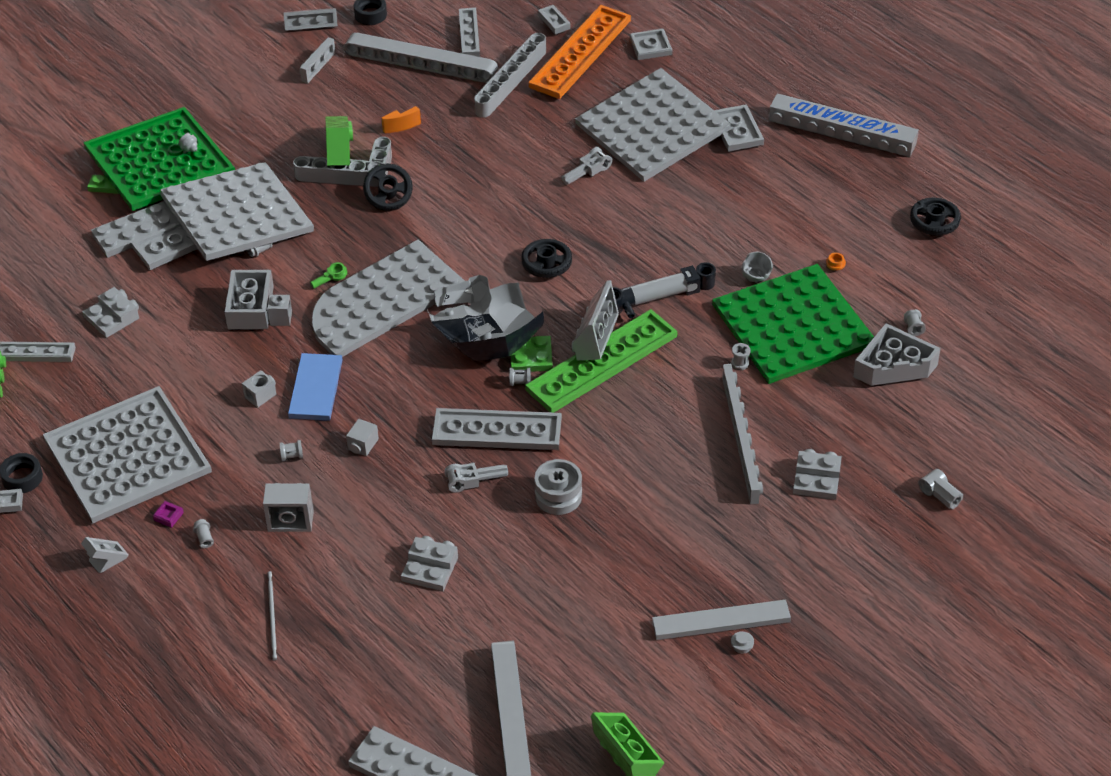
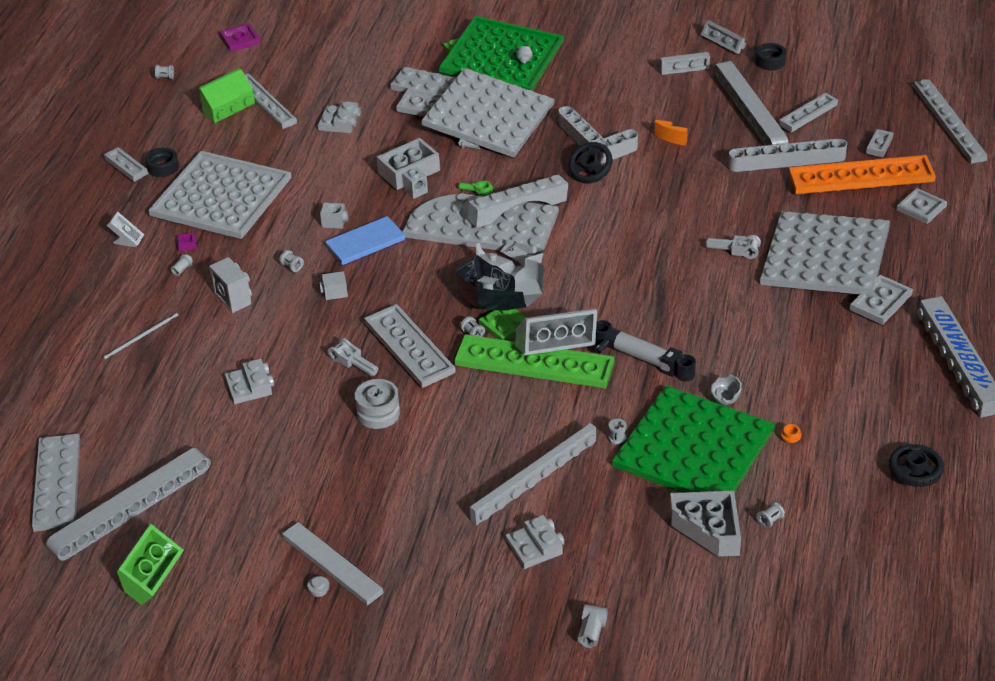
camera: 55 degrees right, 5 degrees down
(338, 135) = (603, 110): bright green wedge -> none
(386, 269) = (488, 208): none -> light grey arch
(547, 258) = (609, 276): black wheel -> none

